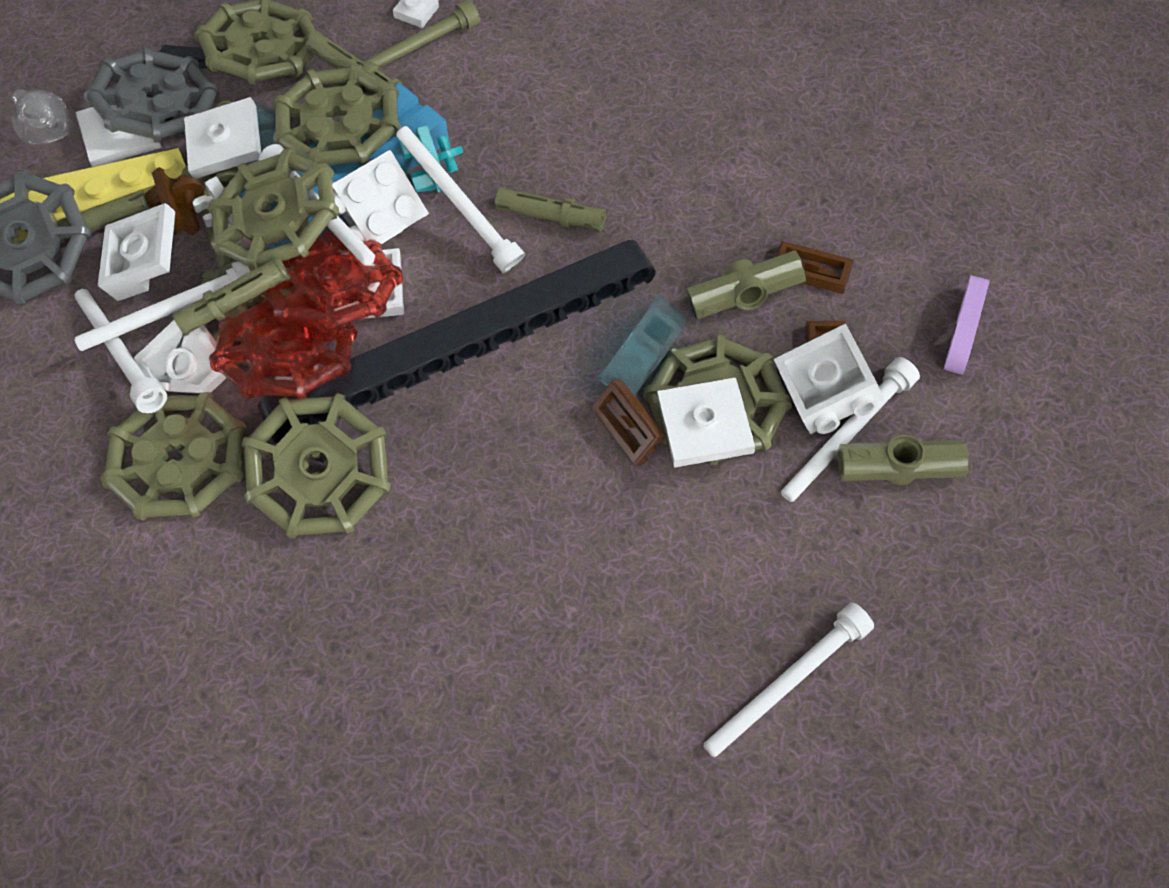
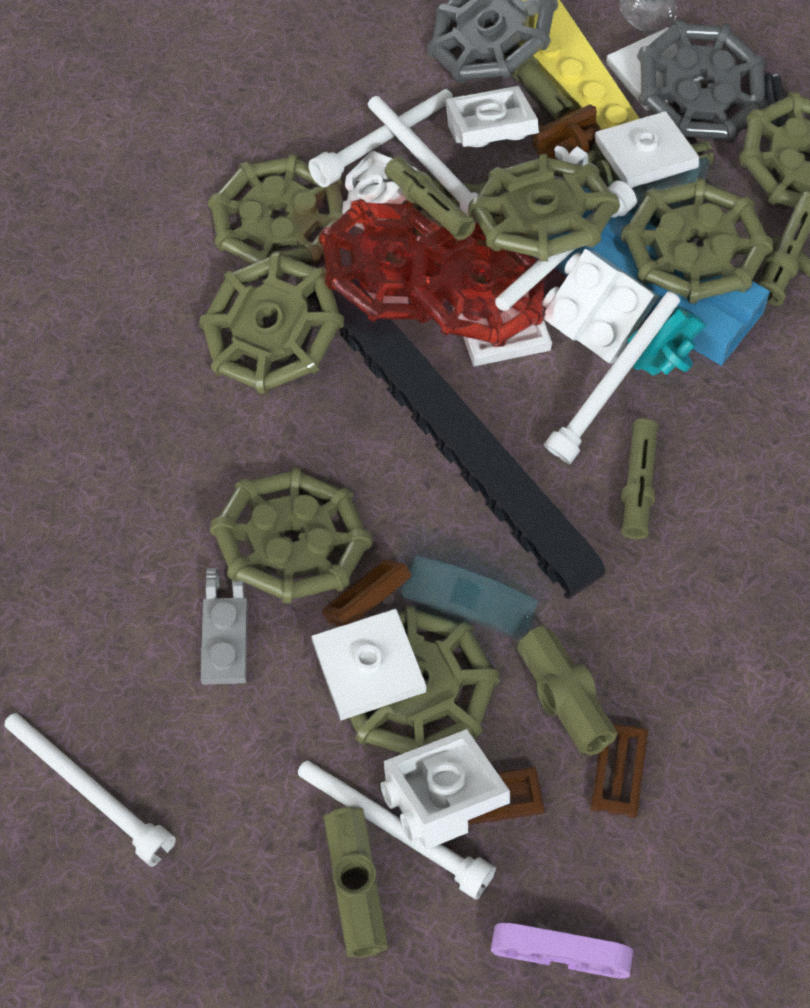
camera: 80 degrees right, 0 degrees up
(558, 455) = (297, 514): none -> olive plate
(639, 546) = (224, 633): none -> light grey hinge

